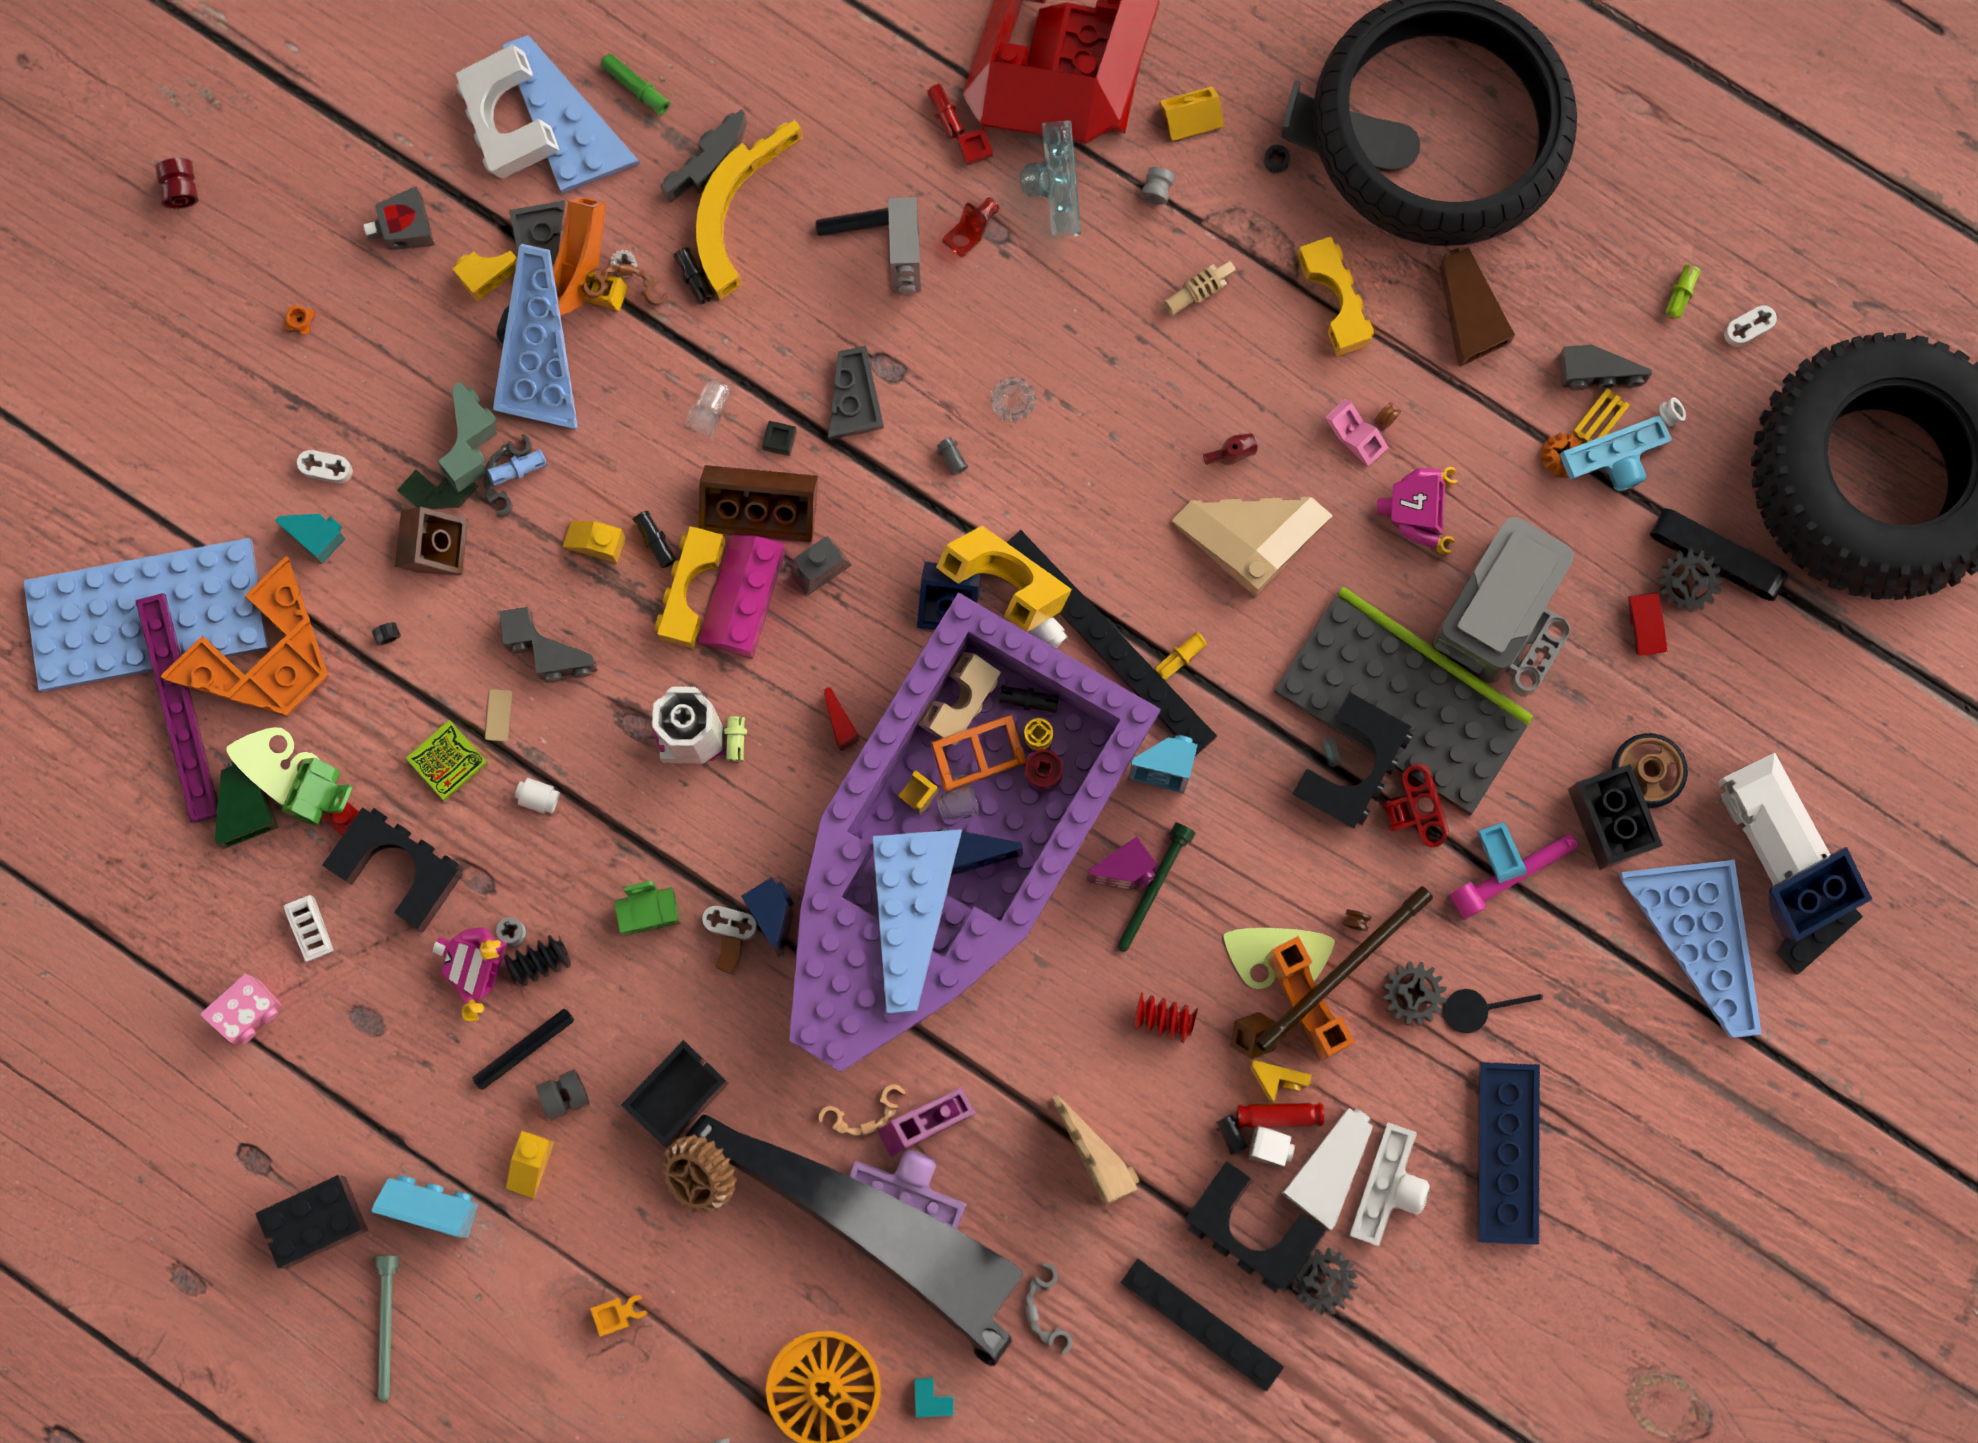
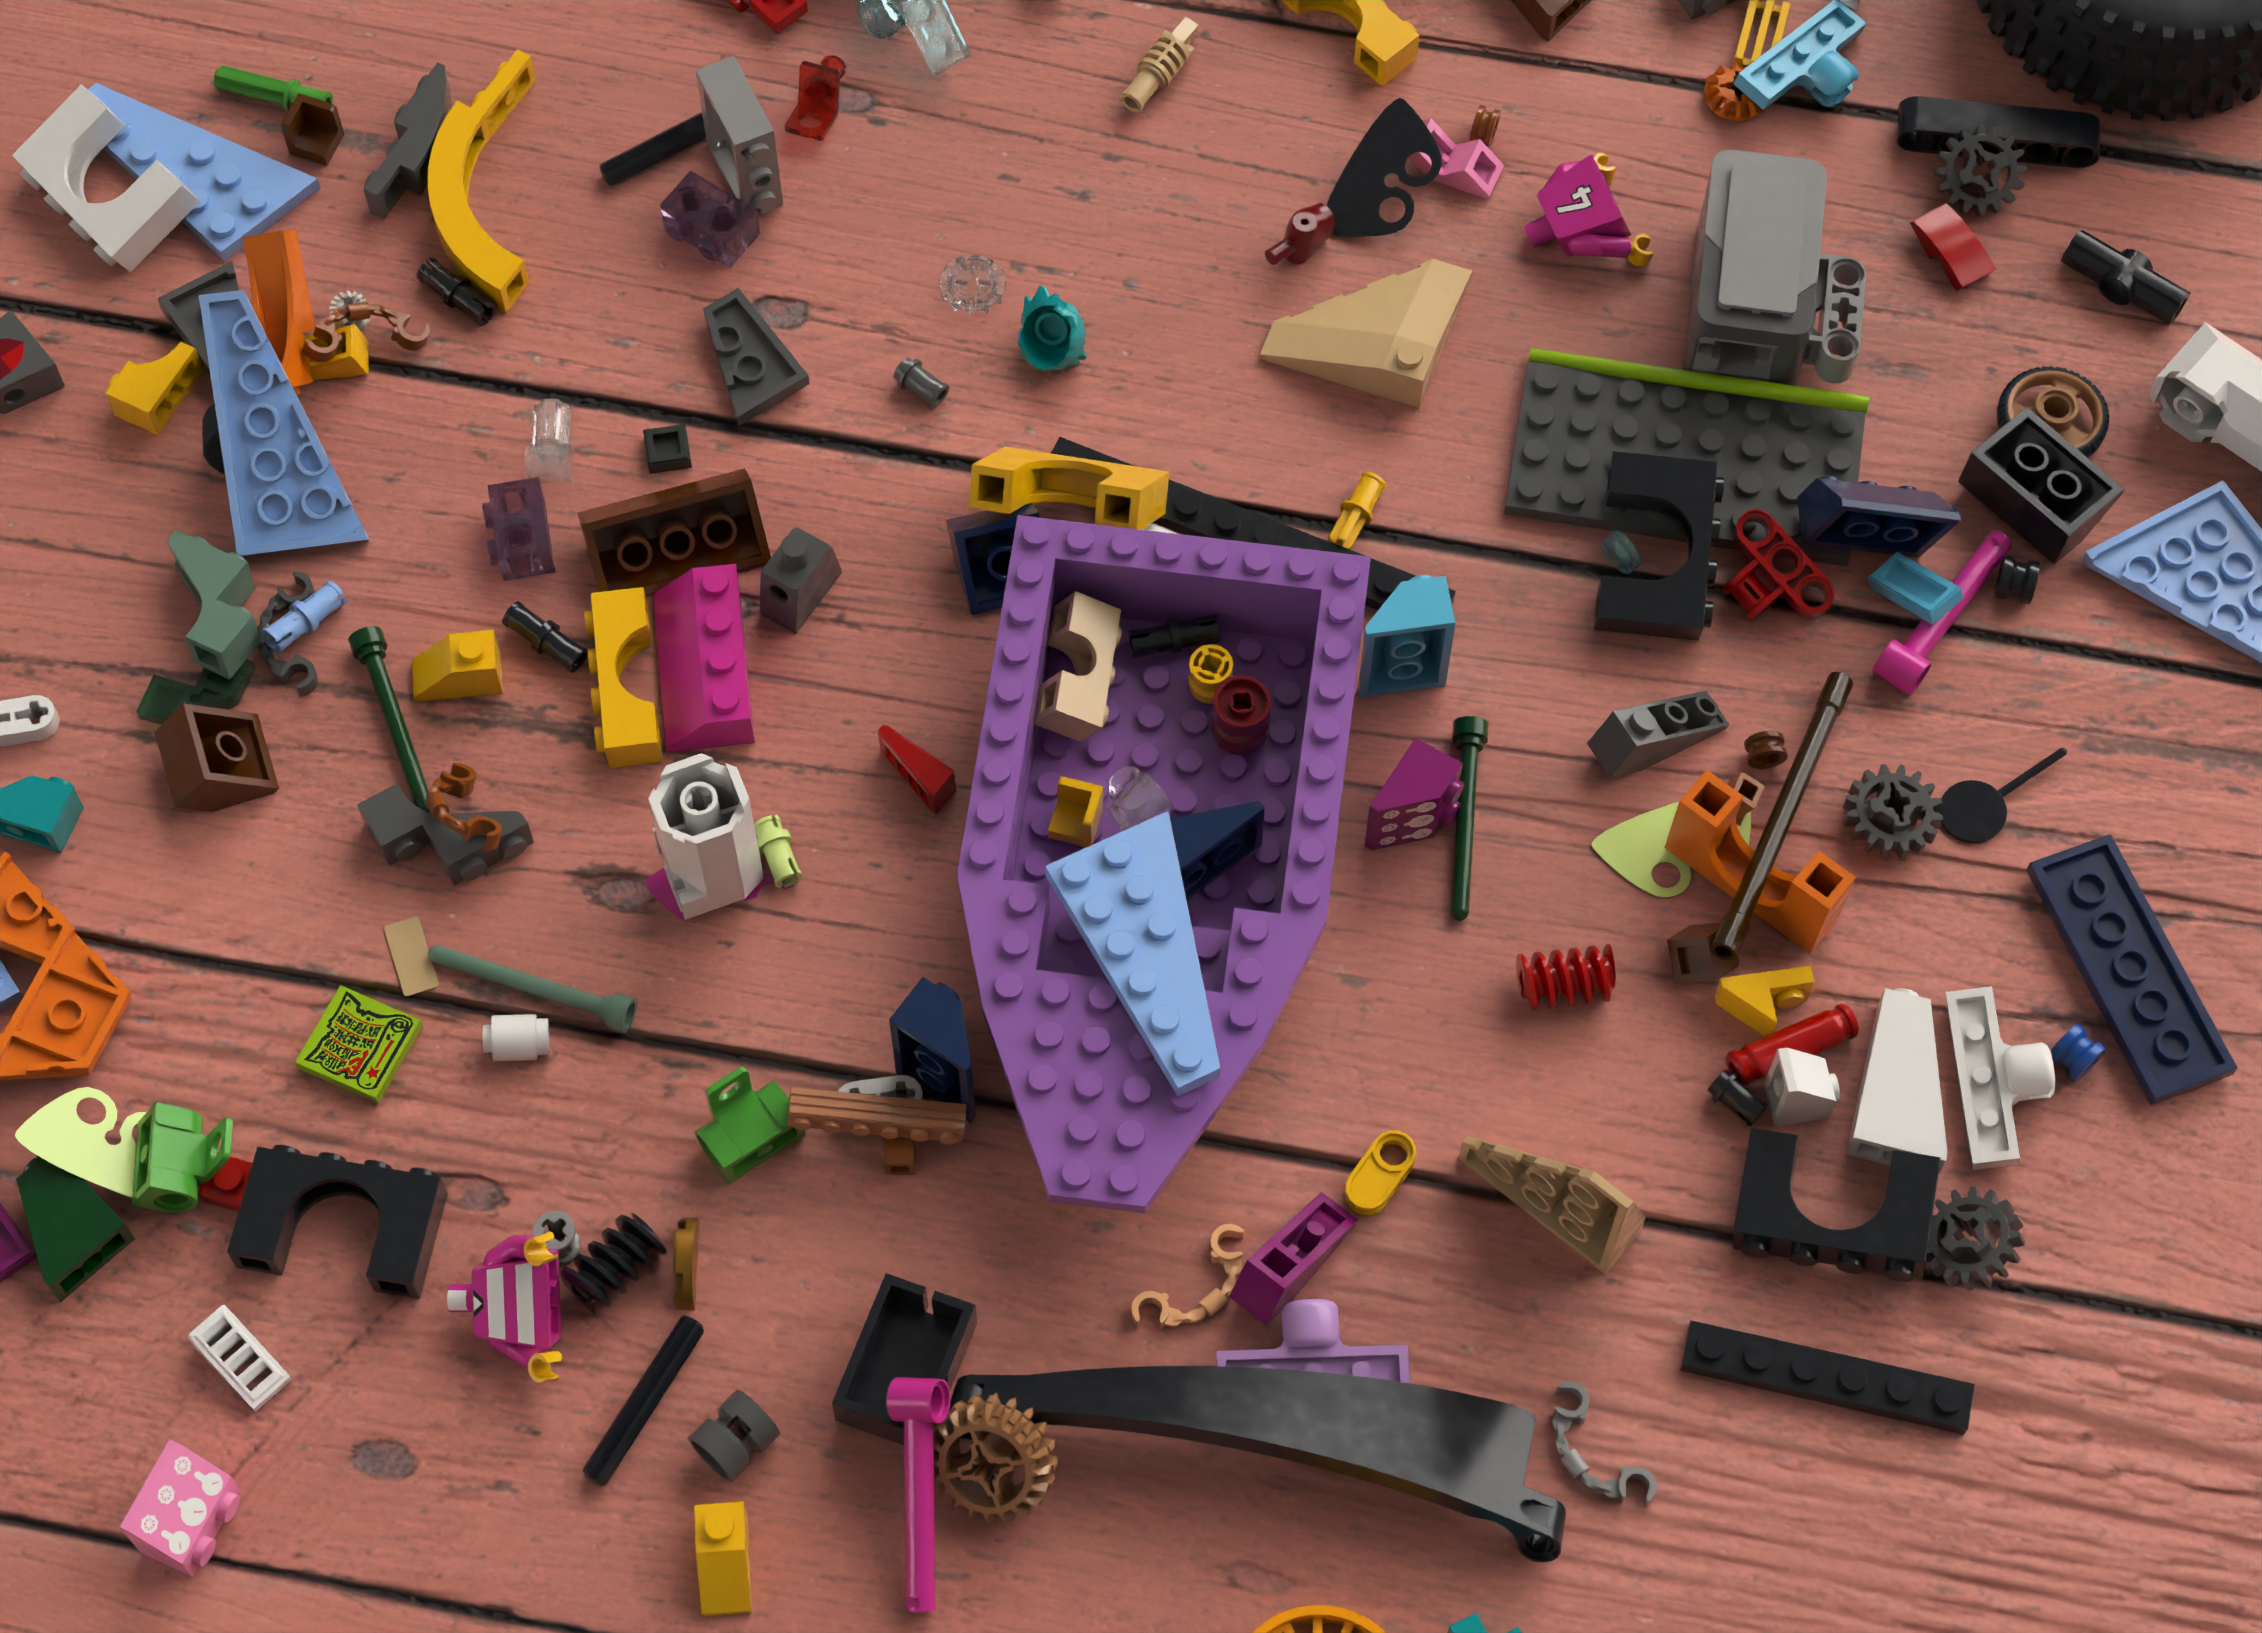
camera: 25 degrees left, 15 degrees down
(386, 633) = (197, 904): black axle -> none
(544, 637) = (460, 784): none -> dark orange piece
(548, 506) = (369, 647): none -> dark green piece
(579, 975) = (686, 1262): none -> pearl gold tile
(600, 801) = (615, 1010): none -> sand green piece
(647, 124) = (312, 129): none -> reddish brown panel
(667, 1133) = (919, 1405): none -> dark pink piece
(674, 461) = (524, 528): none -> clear purple brick
(716, 935) = (876, 1115): none -> nougat piece
(872, 286) = (713, 213): none -> brick
(972, 734) = (1105, 769): orange window -> none
(994, 1093) = (1373, 1180): none -> yellow piece
(1044, 457) = (1051, 332): none -> teal hair
(1296, 880) = (1654, 731): none -> dark grey slope
(1310, 413) = (1382, 152): none -> black piece
(1323, 939) = (1751, 793): none -> dark orange piece
(1447, 1193) = (2077, 1052): none -> blue wheel
(1496, 796) = (1873, 517): none -> dark blue slope
(1569, 872) = (2017, 579): none -> black wheel
(1747, 691) = (2125, 277): none -> black piece

